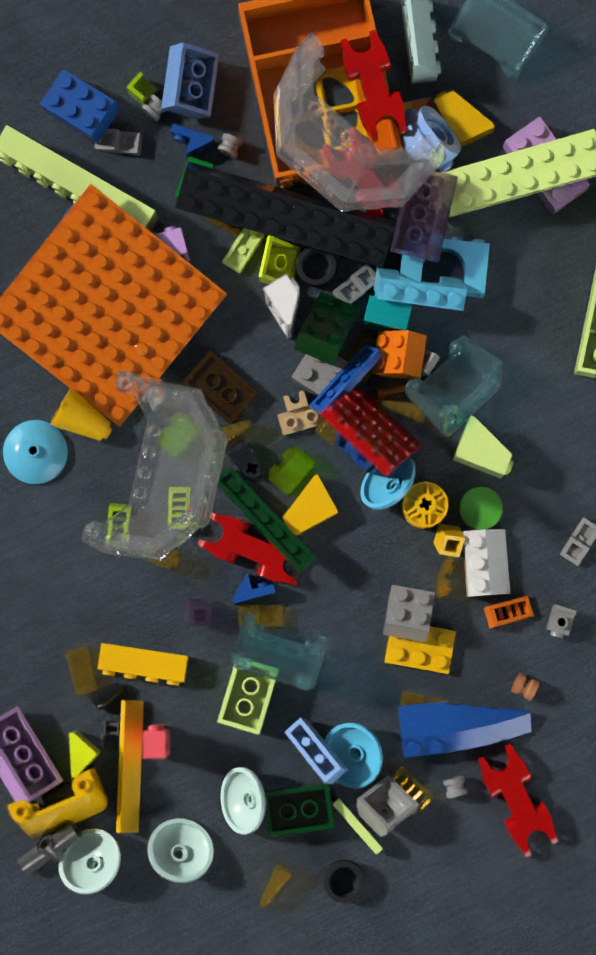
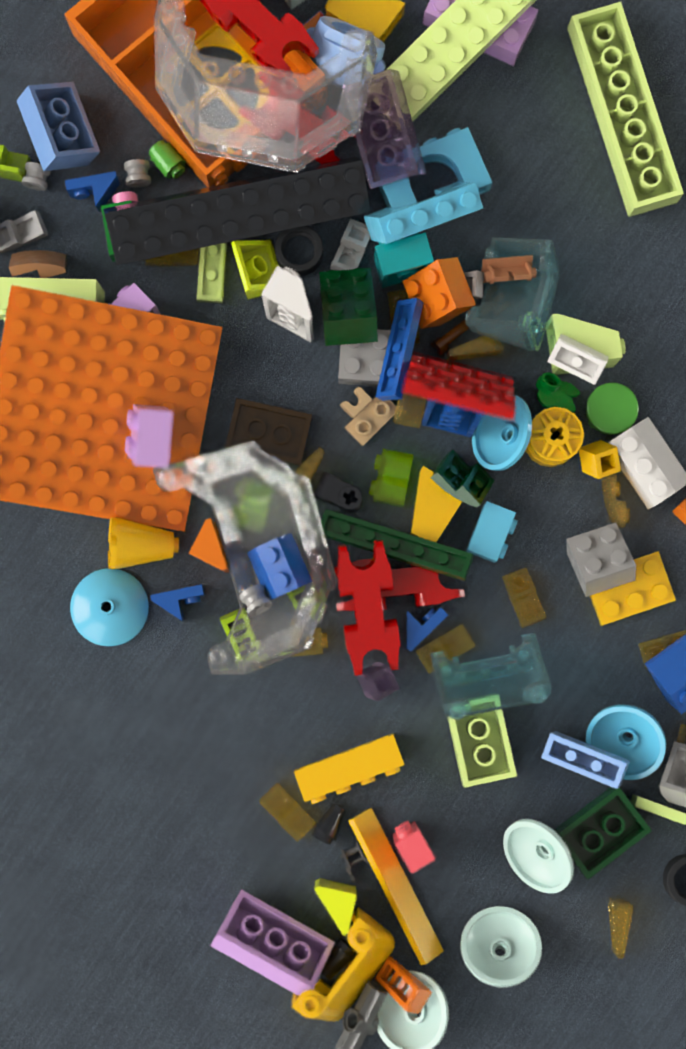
camera: 35 degrees left, 0 degrees up
(82, 472) = (172, 599): none -> blue slope
(101, 849) = (416, 995): none -> orange slope
(127, 176) = (46, 262): none -> medium nougat slope
(129, 345) = (149, 435): none -> lavender brick
(130, 447) = (209, 547): none -> orange slope
(142, 504) = (255, 600): none -> light grey wheel
(172, 490) = (279, 566): none -> blue slope
(210, 159) = (125, 196): none -> bright pink tile
(225, 538) = (366, 586): none -> red piece
(256, 147) = (167, 159): none -> bright green brick
(339, 610) = (524, 597): none -> clear yellow slope
(340, 501) = (461, 481): none -> dark green slope
(340, 550) = (491, 532): none -> medium azure brick
(445, 474) = (556, 392): none -> green plate
(460, 364) = (508, 269): none -> nougat hinge
(470, 458) = (578, 359): none -> white slope

